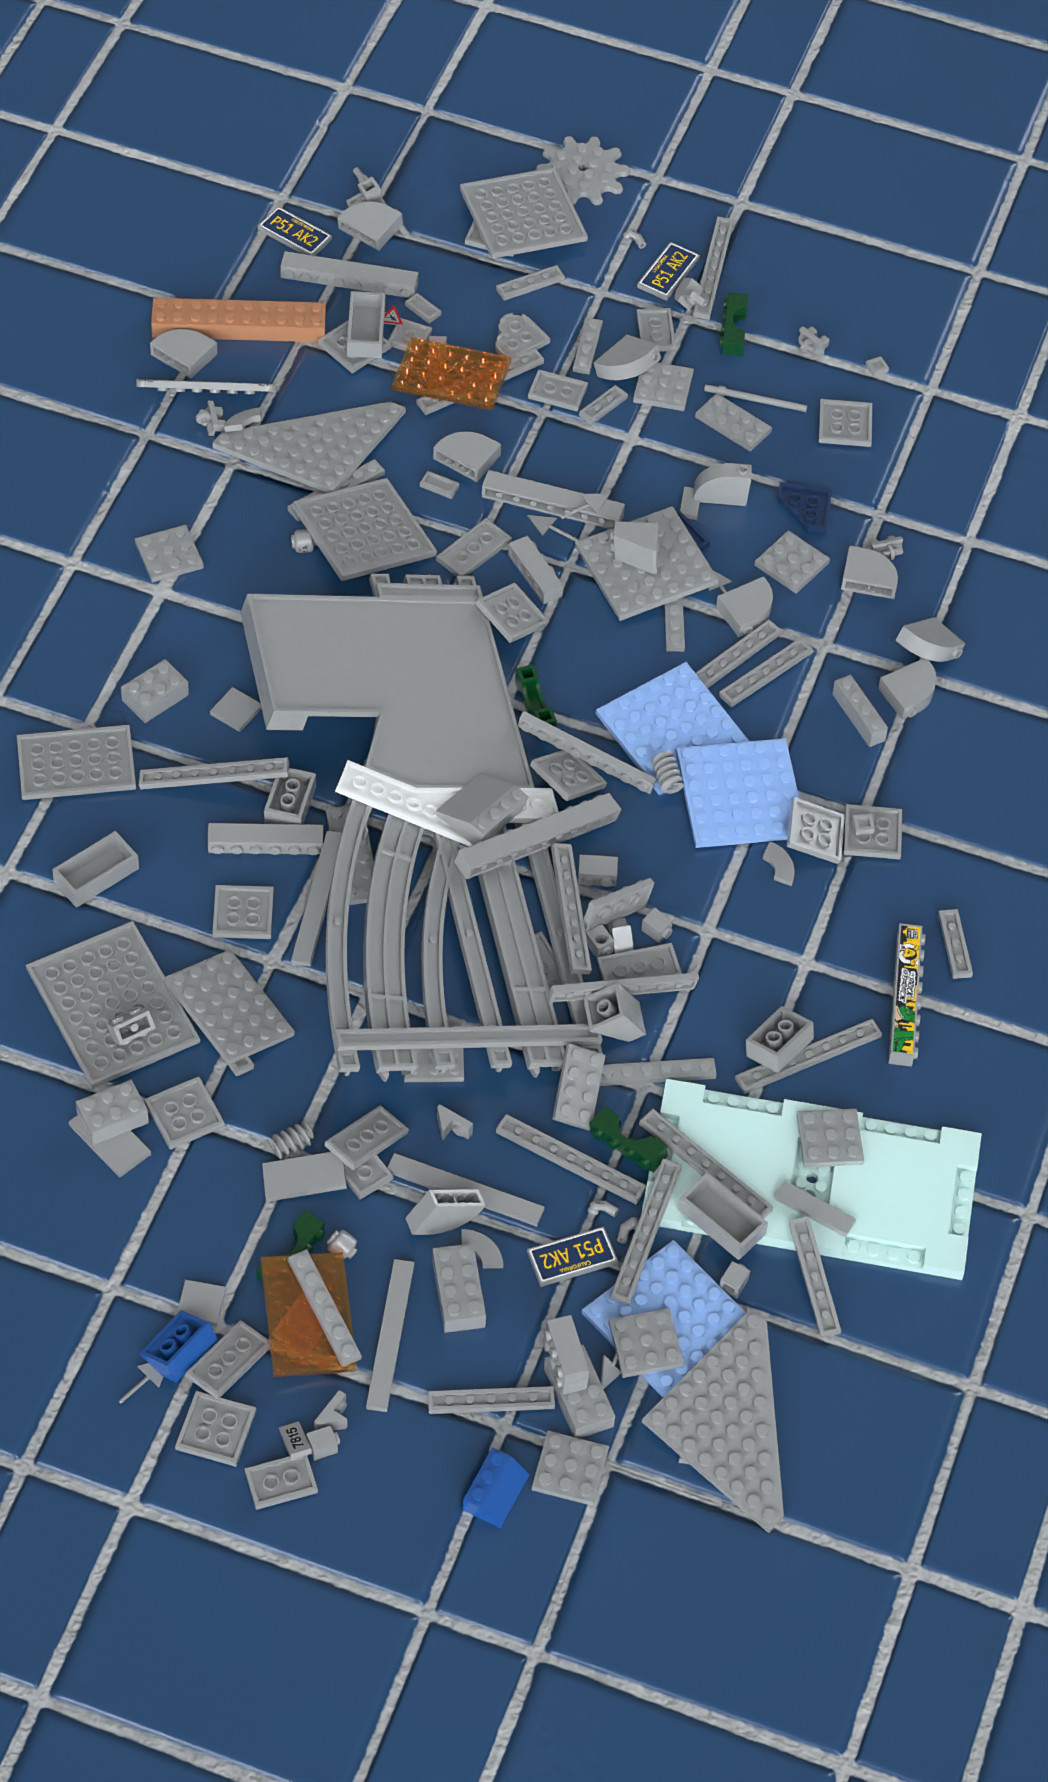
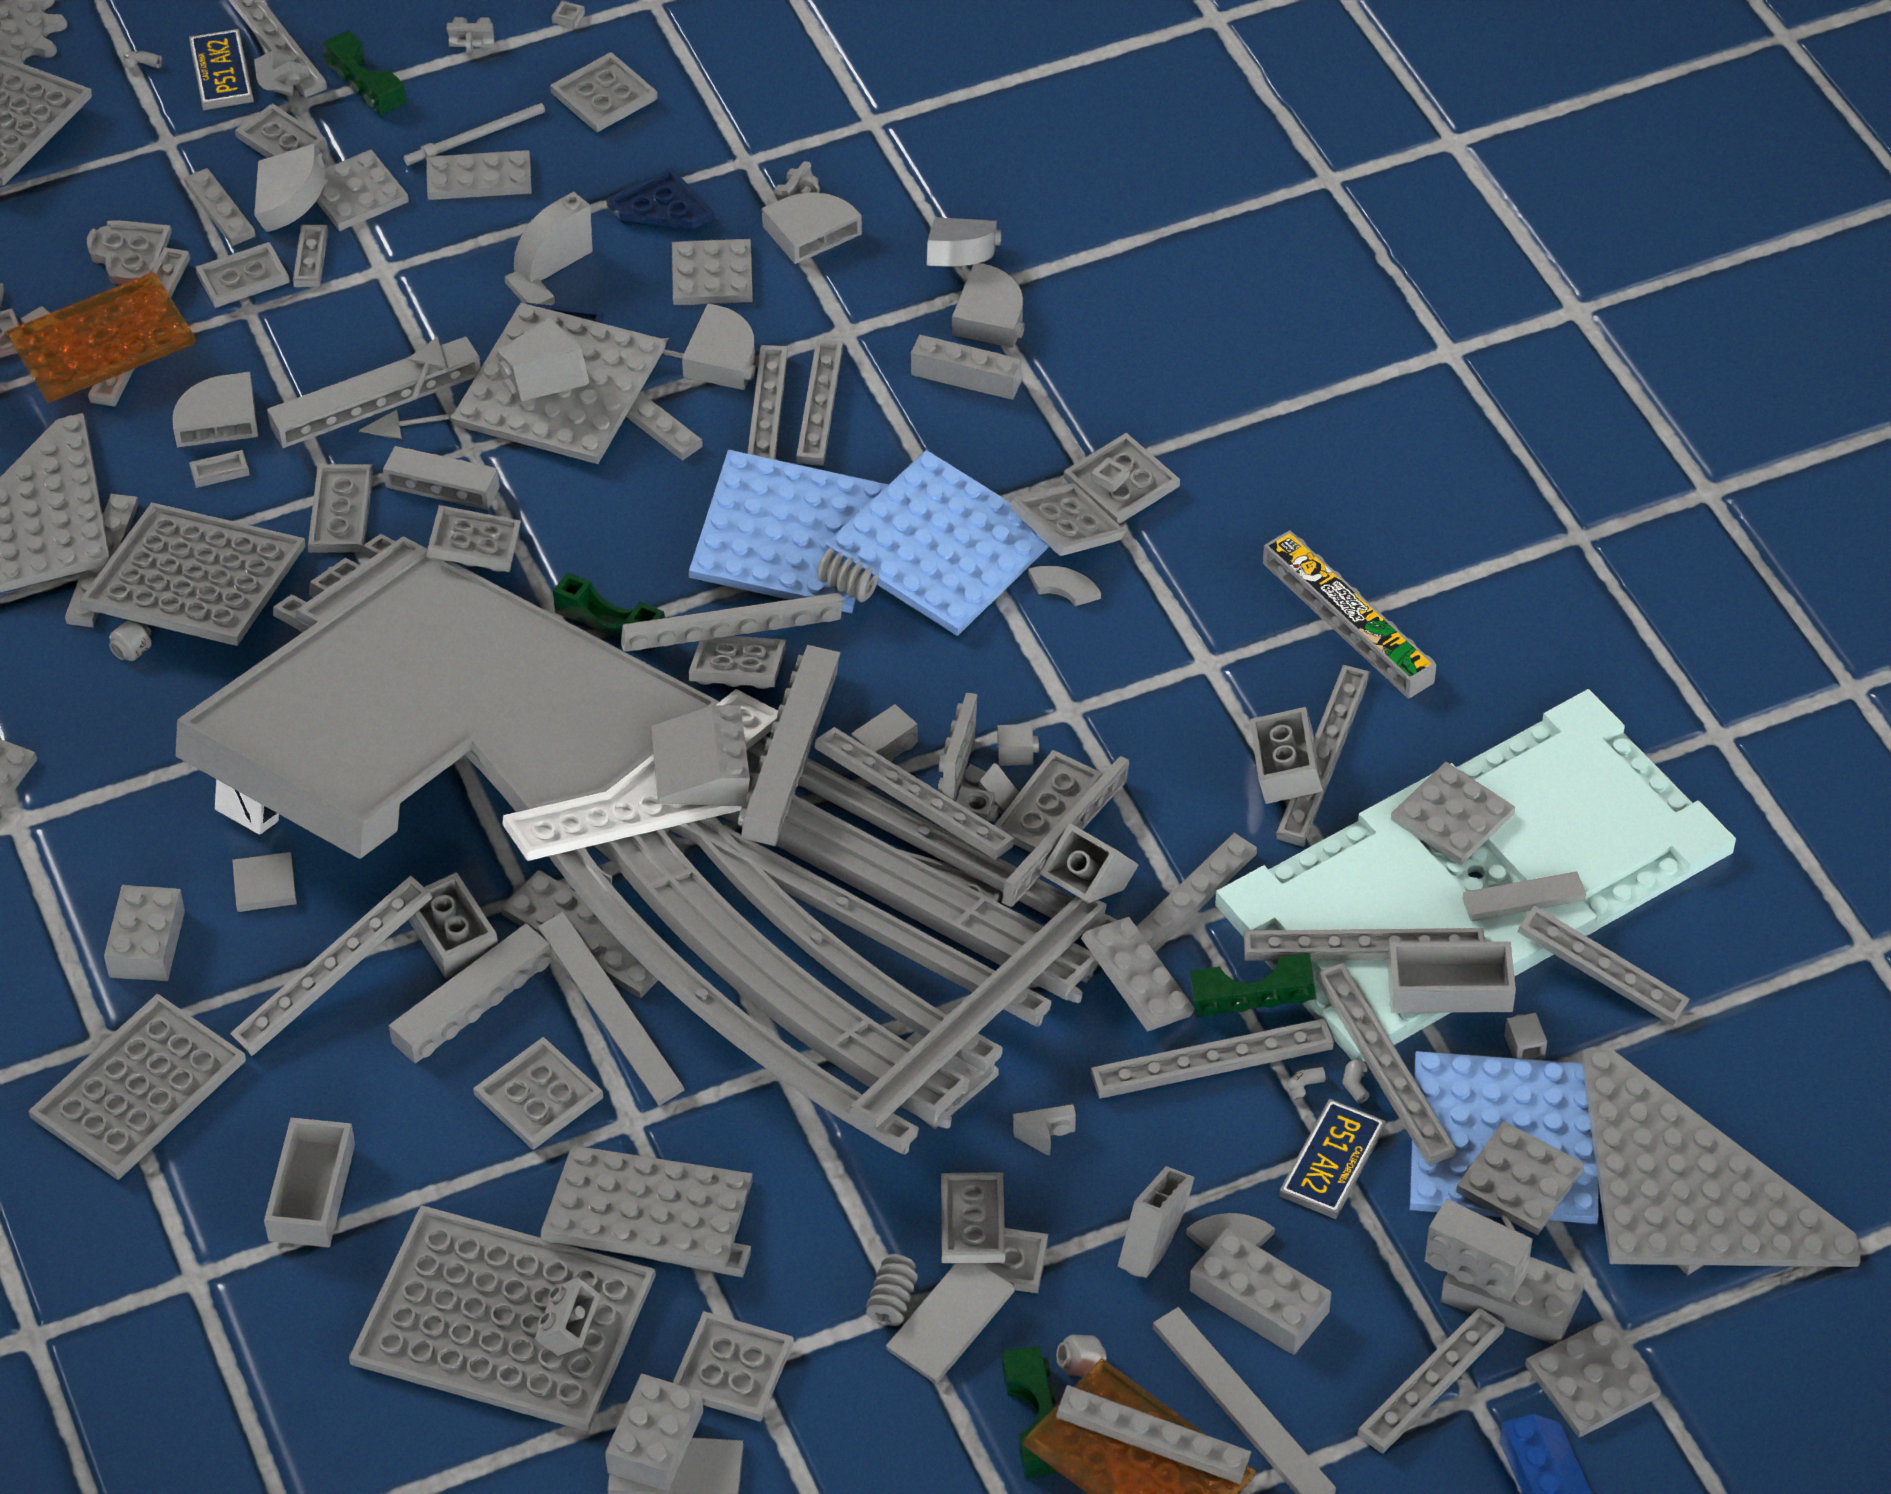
camera: 40 degrees left, 5 degrees down
(442, 1180) = (1126, 1188): light grey tile -> none
(530, 282) = (72, 185): light grey tile -> none
(955, 943) = (1335, 525): light grey plate -> none

